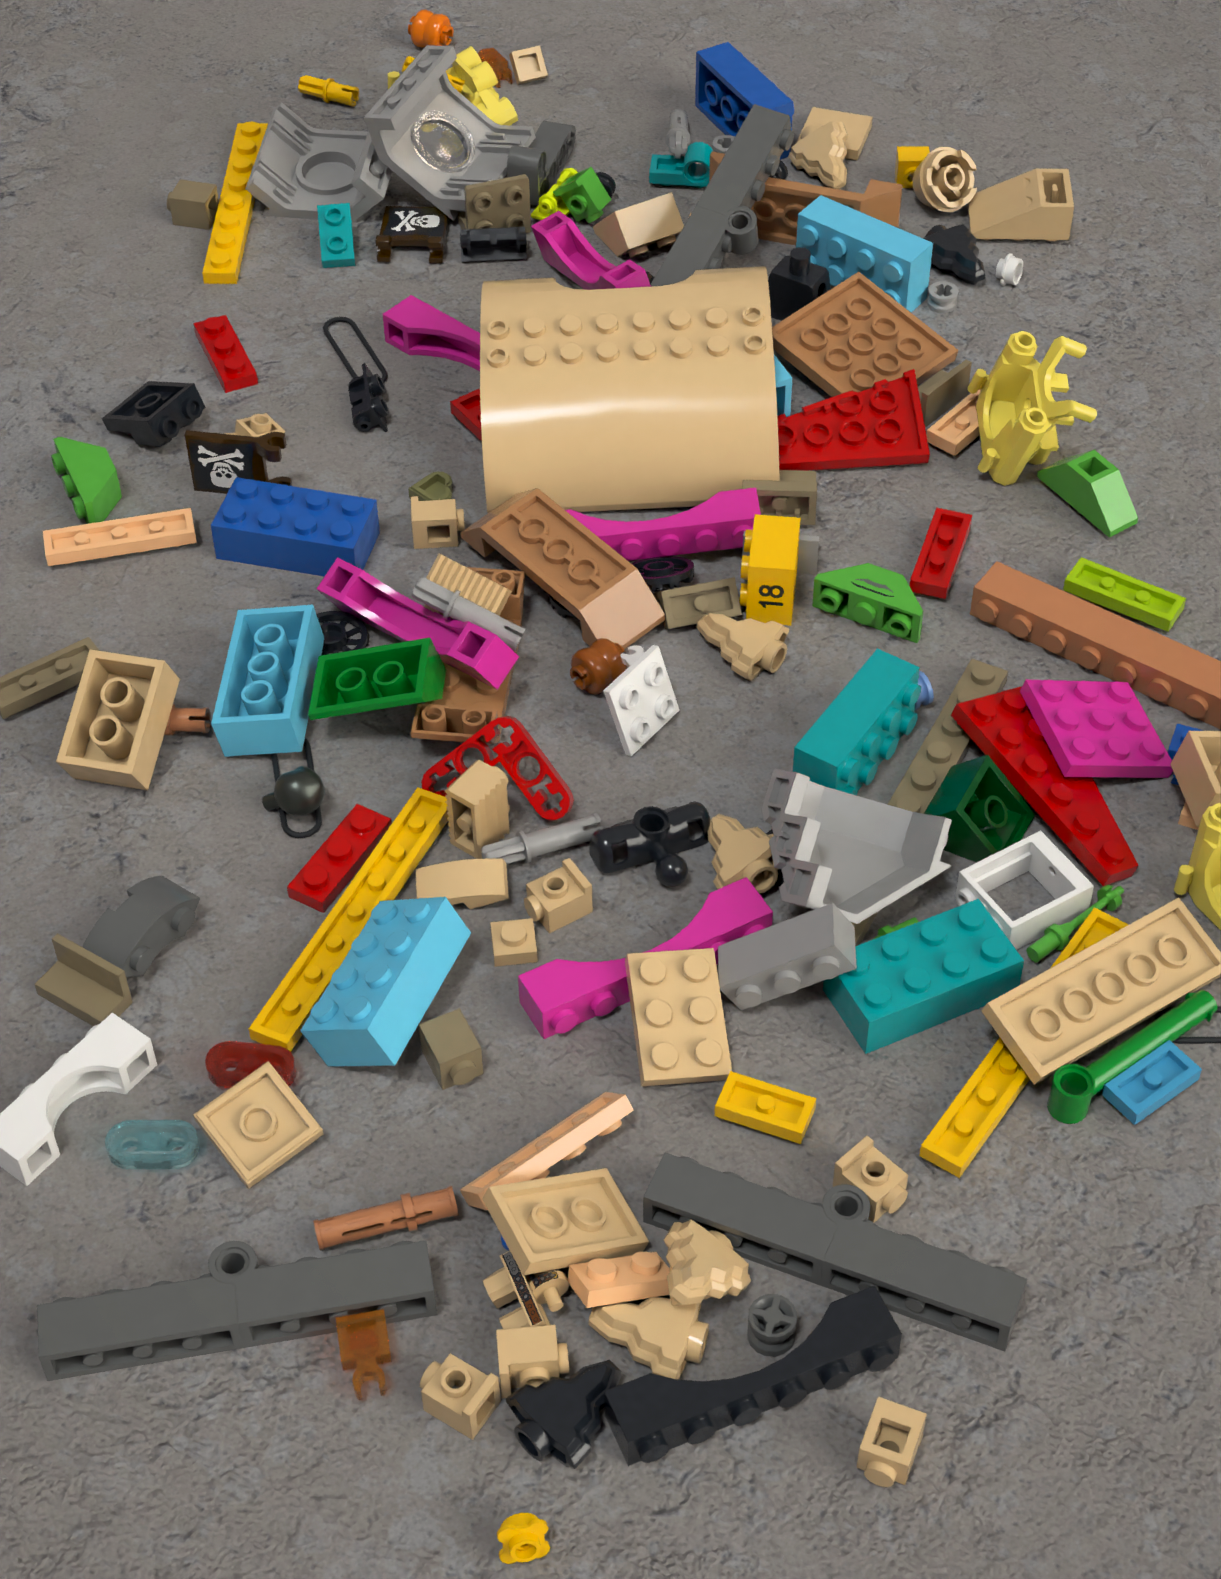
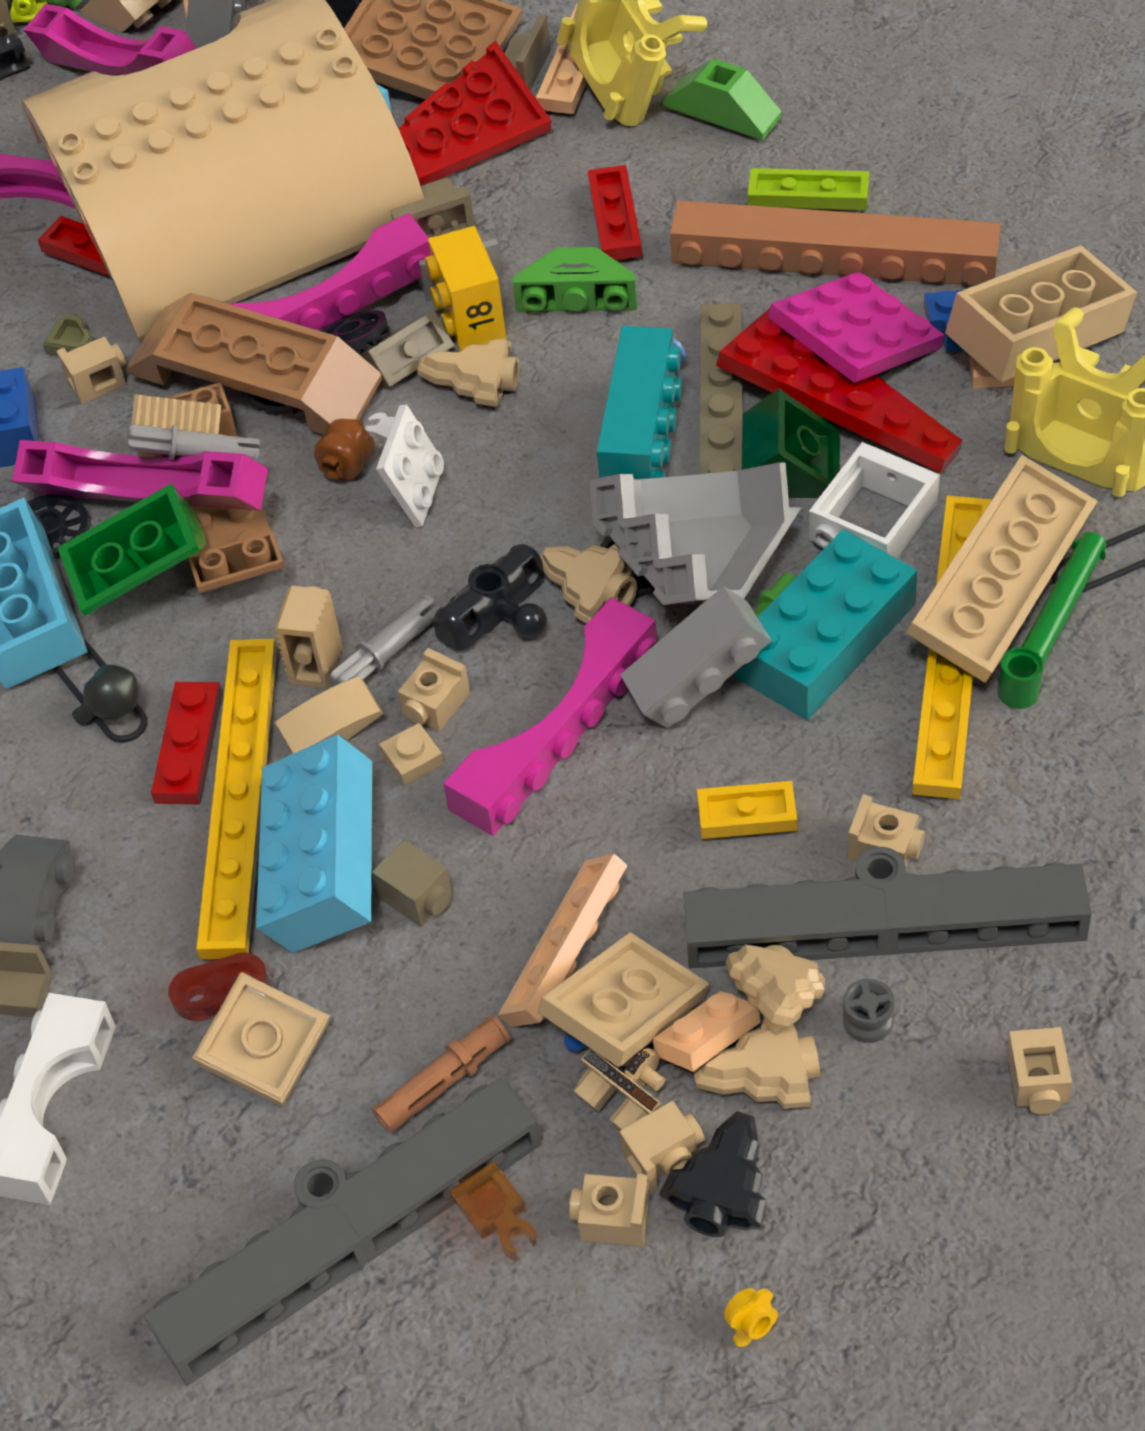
camera: 20 degrees left, 5 degrees up
(153, 1143) = (162, 1105): clear light blue plate -> none
(509, 757) = (313, 573): red beam -> none
(665, 1412) = (815, 1136): black arch -> none
(677, 1017) = (618, 758): tan plate -> none
(1058, 935) = (925, 536): bright green piece -> none
(1151, 1082) = (1084, 636): dark azure plate -> none

